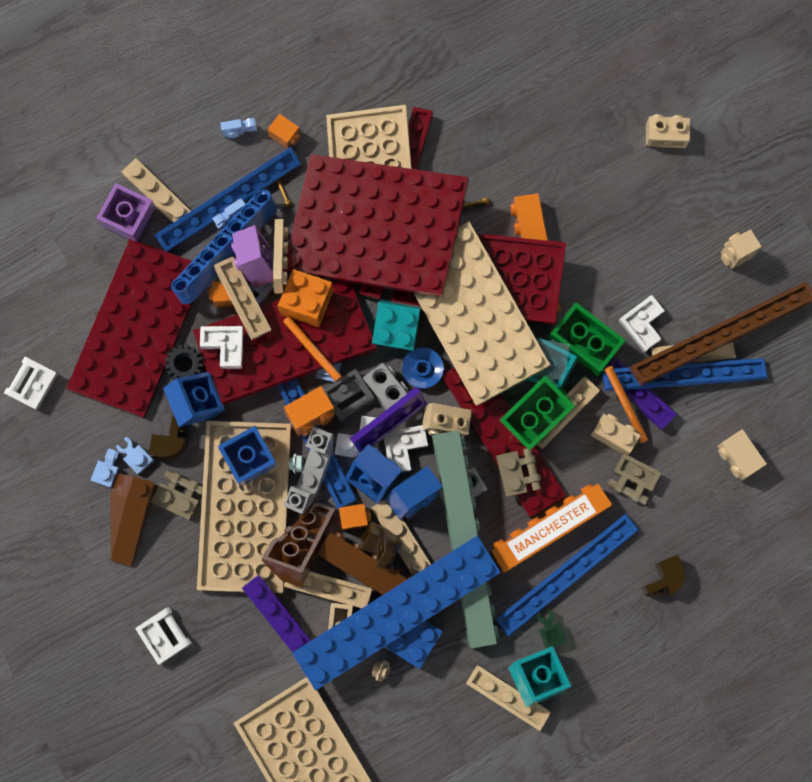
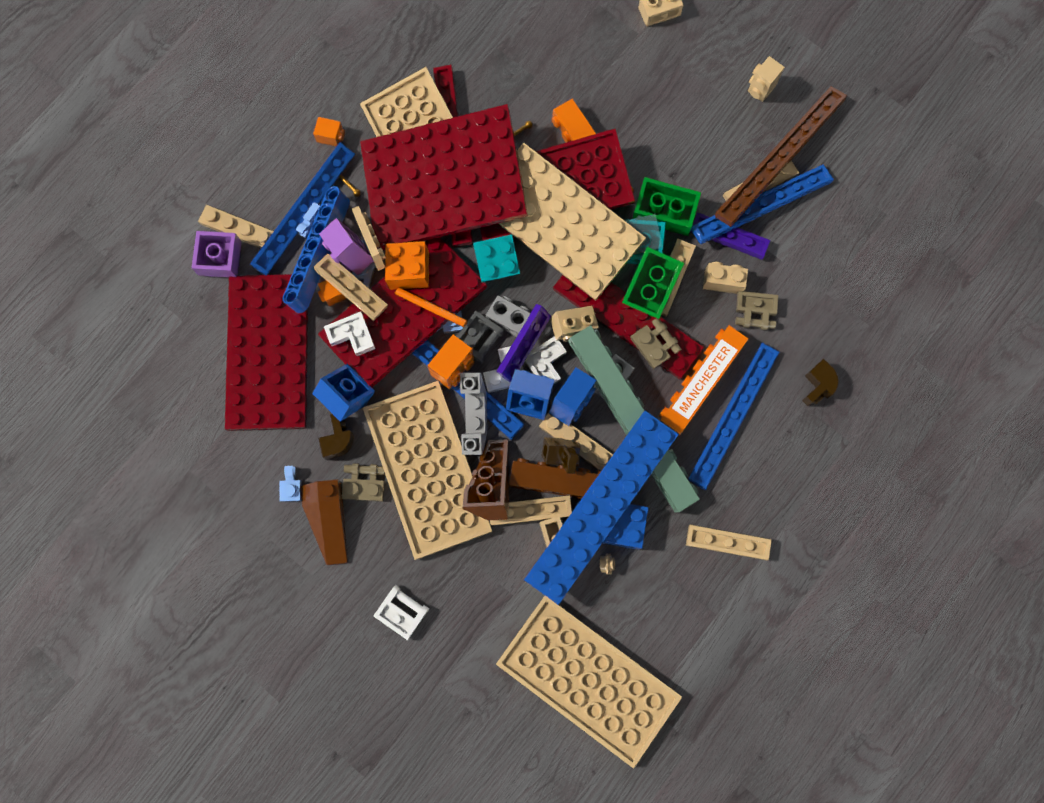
camera: 15 degrees left, 0 degrees up
(36, 386) = (197, 437): white plate -> none
(135, 458) = (312, 465): light blue plate -> none
(180, 352) = (314, 357): black tyre -> none
(236, 127) = (284, 144): light blue plate -> none
(247, 456) = (412, 422): blue brick -> none
(276, 613) = (494, 552): dark purple plate -> none
(296, 463) = (457, 413): light aqua plate -> none
(354, 517) = (528, 439): orange brick -> none
(426, 358) = (530, 278): blue dish -> none
(539, 676) = (749, 512): teal brick -> none
(551, 633) = (742, 471): clear green plate -> none
(626, 403) = (722, 246): orange bar -> none
(637, 323) = (703, 174): white plate -> none
(741, 455) = (840, 252): tan brick -> none

